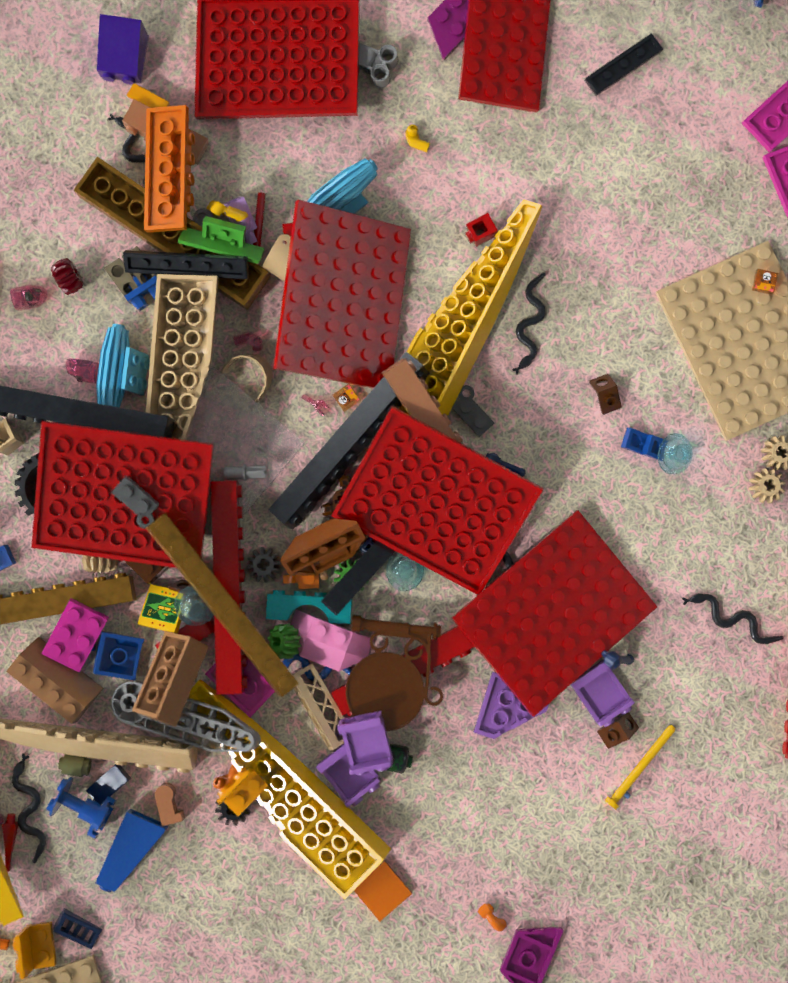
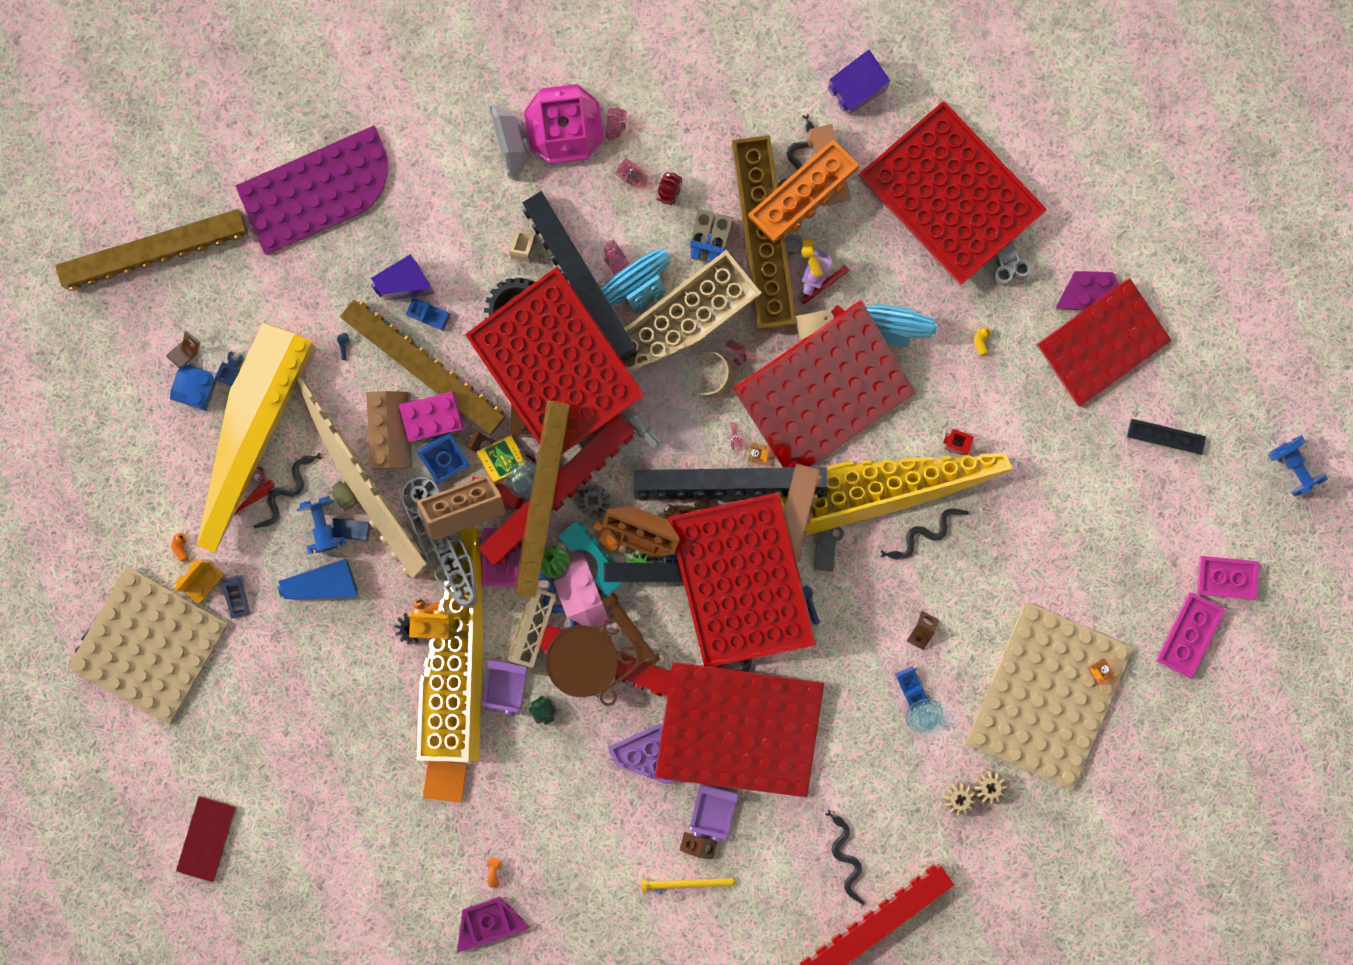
camera: 45 degrees right, 0 degrees up
(99, 564) = (493, 389): tan gear -> none
(127, 615) = (476, 439): none -> reddish brown bracket
(136, 499) = (560, 377): dark grey hinge -> none
(146, 97) = (841, 131): light orange slope -> none
(167, 806) = (372, 581): nougat leg -> none
(186, 264) = (750, 263): black tile -> none
(221, 238) = (790, 273): bright green bracket -> none
(366, 743) = (535, 679): medium lavender panel -> none
(403, 572) = (673, 601): clear light blue hat -> none
(613, 660) = (742, 799): dark blue piece -> none

